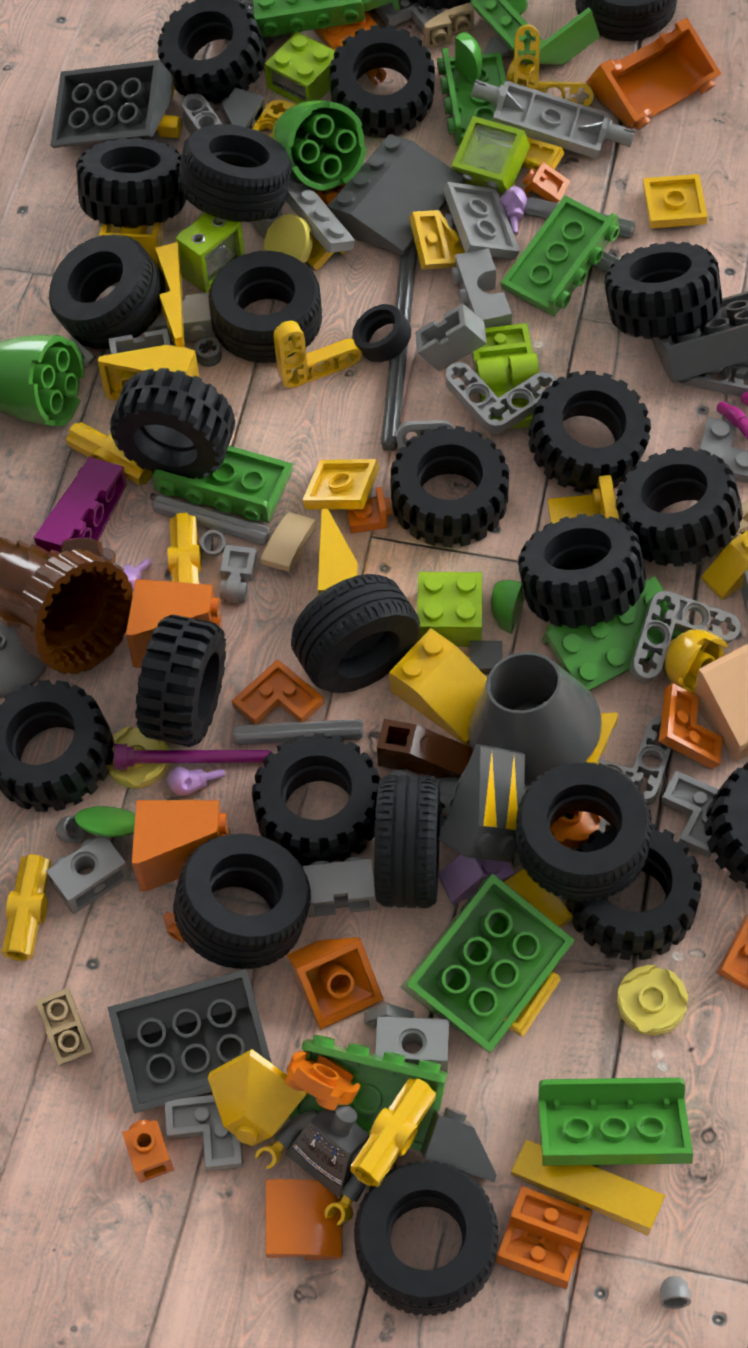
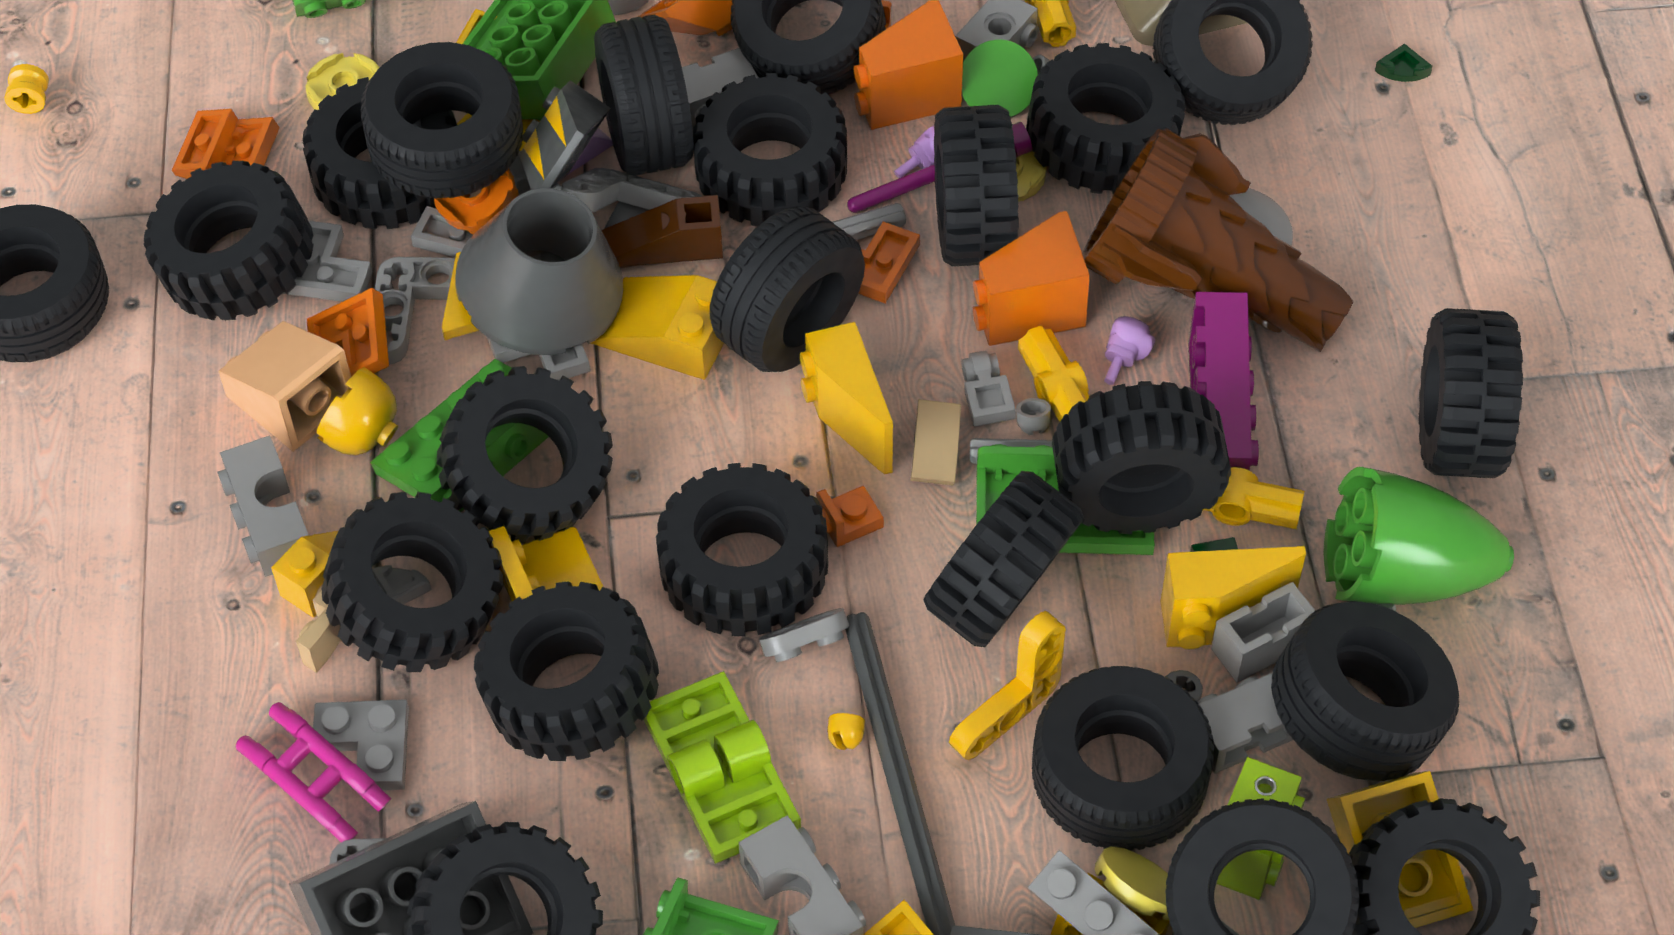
camera: 160 degrees right, 5 degrees down
(172, 300) = (1250, 685): yellow slope -> none
(268, 382) = (1003, 558): none -> black tyre
(341, 484) = (895, 523): yellow plate -> none
(389, 346) = (914, 790): black tyre -> none
(418, 385) = (845, 730): none -> yellow hinge
(451, 338) = (817, 769): light grey brick -> none
(451, 605) = (691, 405): lime piece -> none
(485, 654) = (629, 376): dark grey tile -> none
(492, 404) = (718, 688): light grey beam -> none
(507, 603) = (624, 430): bright green brick -> none
(675, 619) = (339, 463): light grey beam -> none

